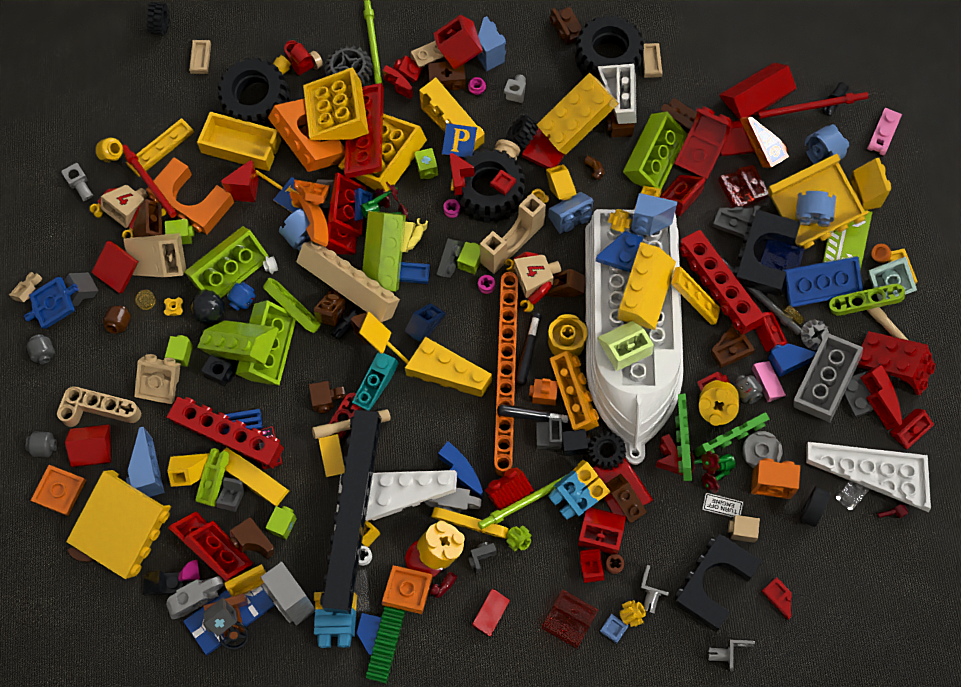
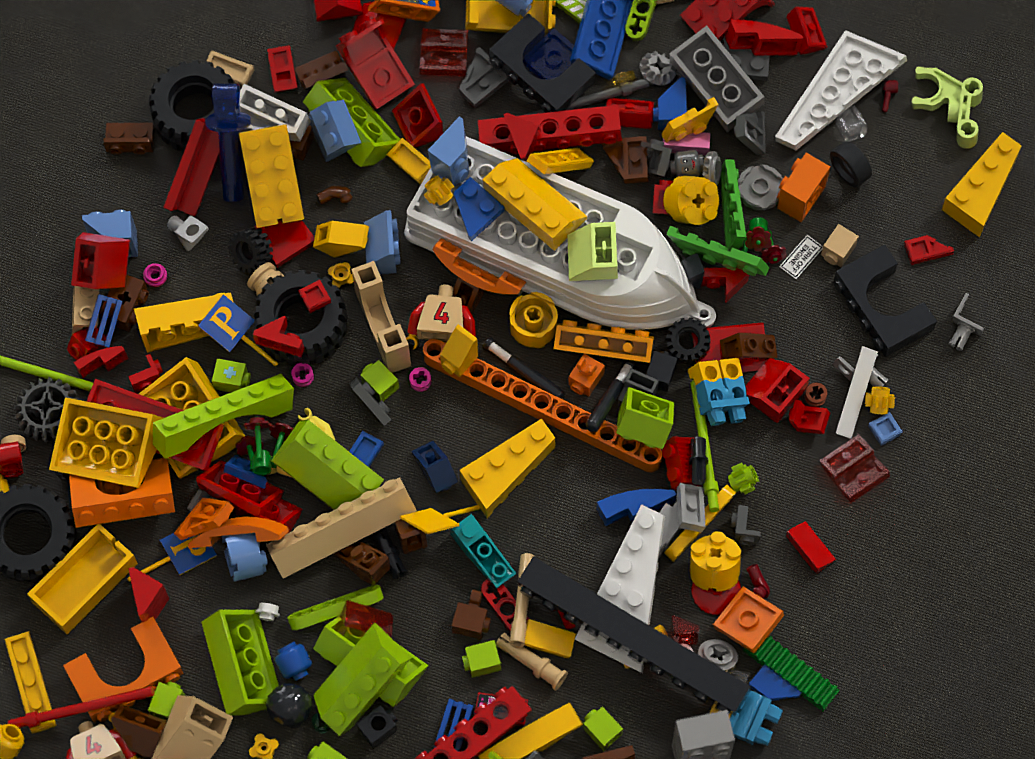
camera: 65 degrees left, 0 degrees up
(289, 328) = (363, 617): none -> clear red slope
(297, 417) = (481, 659): none -> lime brick
(309, 460) = (541, 667): none -> tan pin
(361, 144) = (183, 429): none -> lime arch
(374, 543) = (684, 631): none -> clear red slope
(380, 581) = (720, 649): none -> light grey gear
(397, 112) = (146, 377): none -> red bracket
(431, 56) = (103, 321): none -> blue tile
(472, 508) = (691, 507): none -> light grey plate
(510, 294) = (459, 351): none -> yellow slope
(512, 497) = (698, 460): none -> black axle
(526, 444) = (645, 418): none -> lime slope
(562, 68) = (194, 170): none -> red panel
(579, 256) = (449, 256): none -> orange slope
(597, 63) = (228, 122): none -> clear blue piece
(629, 592) = (856, 392): none -> white sticker
(637, 138) = (333, 129): none -> medium blue slope
(662, 428) = (694, 270): none -> black slope
(675, 89) = (282, 69): none -> red slope
(697, 259) = (523, 133): none -> red slope
(741, 367) = (659, 157): none -> dark grey bracket
(753, 407) = (712, 167): none -> light grey gear
(780, 373) = (690, 122): none -> yellow wing
(801, 421) = (751, 131): none -> dark grey wing
(857, 617) = (979, 189): none -> yellow wedge
(918, 568) = (959, 100): none -> yellowish green piece

